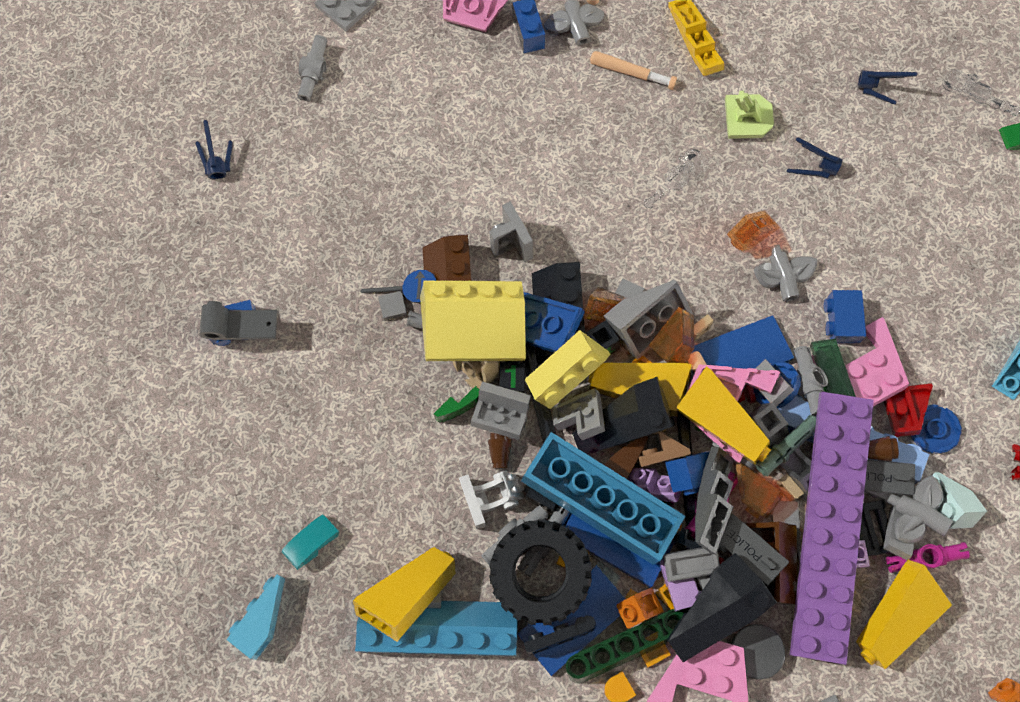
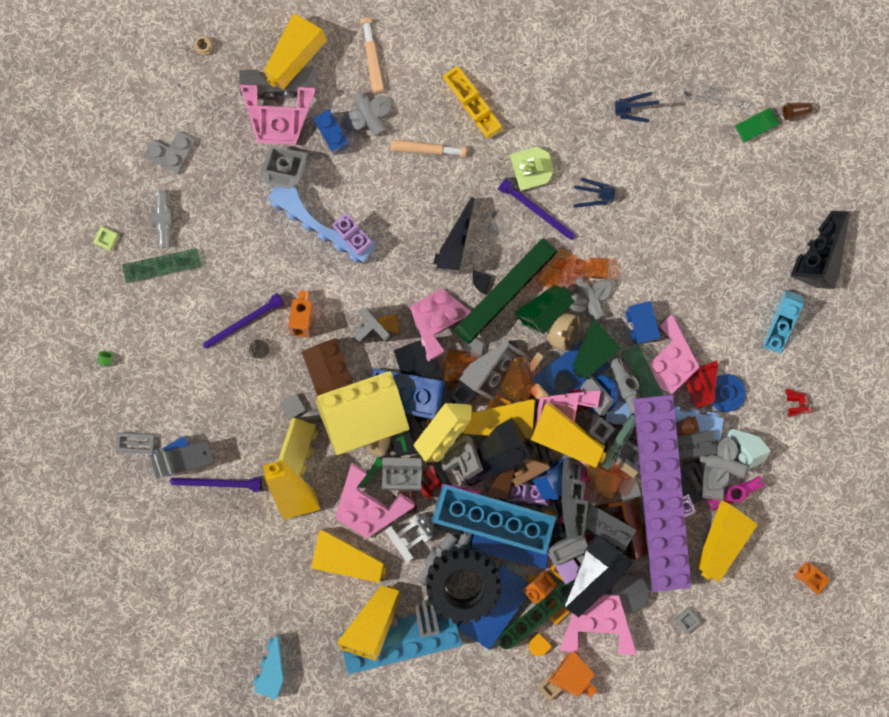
camera: 20 degrees left, 15 degrees up
(174, 292) = (152, 443): none -> light grey tile
(194, 196) = (105, 358): none -> bright green hinge
(215, 167) = (112, 328): dark blue plant -> none
(243, 75) = (106, 238): none -> yellowish green tile
(294, 117) = (161, 265): none -> clear green tile
(309, 540) = (289, 605): teal slope -> none
(313, 381) = (252, 484): none -> dark purple piece
(354, 393) = (290, 491): none -> yellow slope
(373, 230) = (258, 349): none -> clear smoke tile
(379, 350) = (297, 445): none -> light yellow slope
(396, 501) = (345, 559): none -> yellow slope
(409, 186) = (274, 303): none -> dark purple piece
(411, 287) = (307, 387): blue piece -> none
(433, 205) = (301, 322): none -> orange torso
(438, 448) = (364, 512): none -> bright pink wing
(465, 41) = (283, 167): none -> light grey slope
(481, 593) = (424, 606): none -> light grey tile
(520, 128) = (352, 234): none -> lavender slope
(520, 144) = (290, 202): none -> light blue arch
(537, 427) = (434, 482): none -> red piece
(539, 243) = (389, 323): none -> light orange tile
(562, 634) = (489, 621): black hinge -> none
(600, 242) = (434, 316): none -> bright pink wing
(633, 177) = (452, 250): none -> black wedge
(657, 223) = (480, 281): none -> black tile
(683, 237) = (505, 291): none -> dark green beam
(714, 130) = (507, 187): none -> dark purple piece
(728, 266) = (545, 309): none -> dark green slope
(729, 358) = (561, 383): none -> black tile
(743, 297) = (562, 331): none -> tan cylinder
(779, 331) = (594, 351): none -> dark green slope
(799, 241) = (596, 268): none -> clear orange plate

